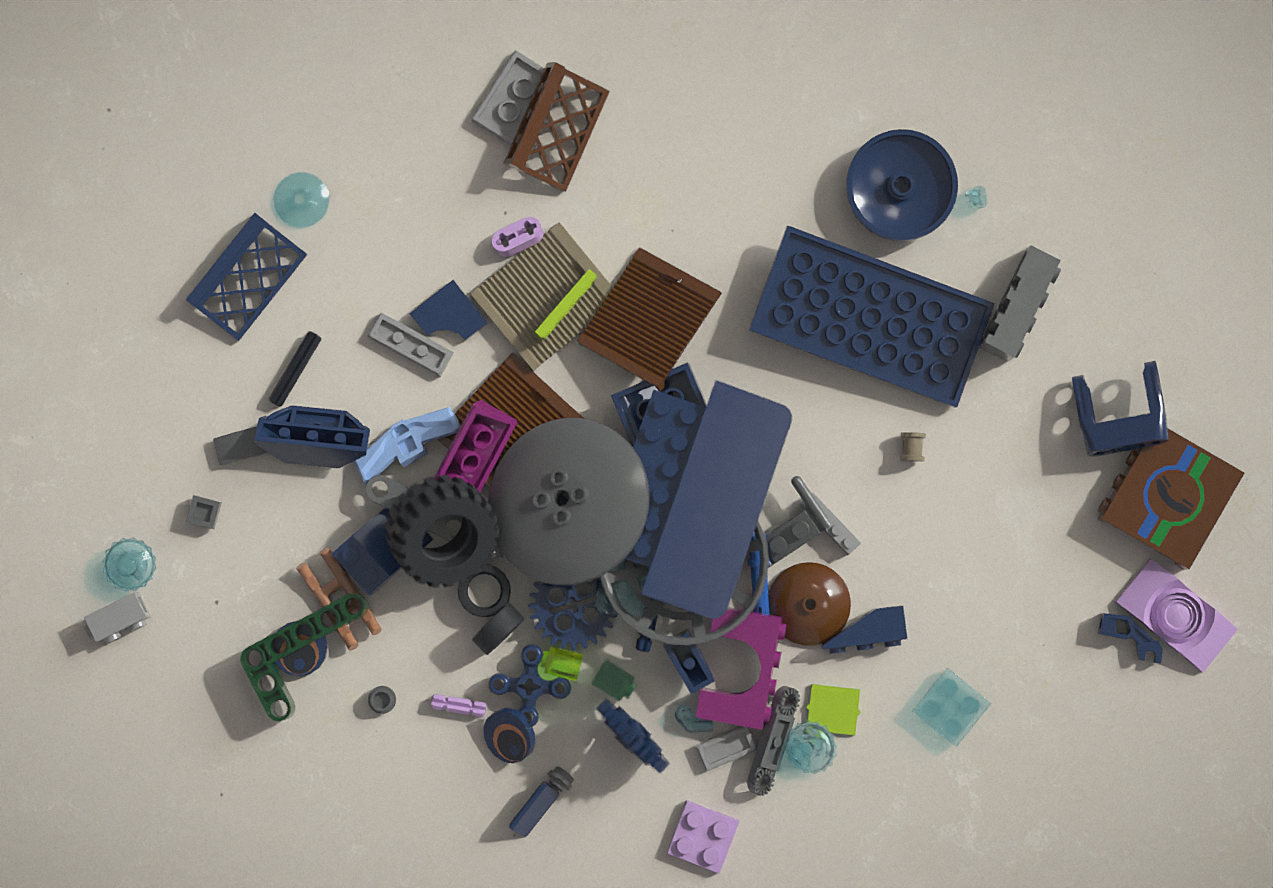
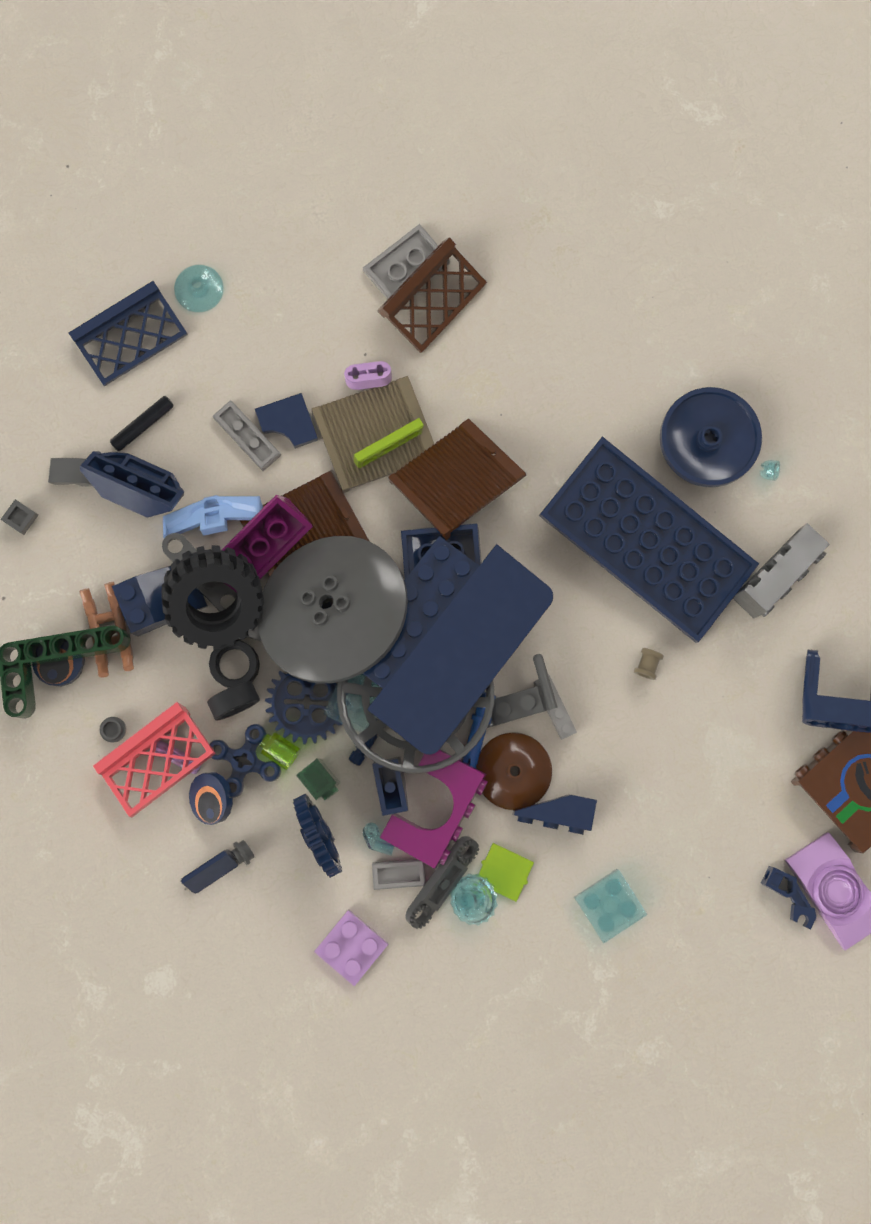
camera: 15 degrees right, 5 degrees down
(419, 701) = (141, 742): none -> coral fence

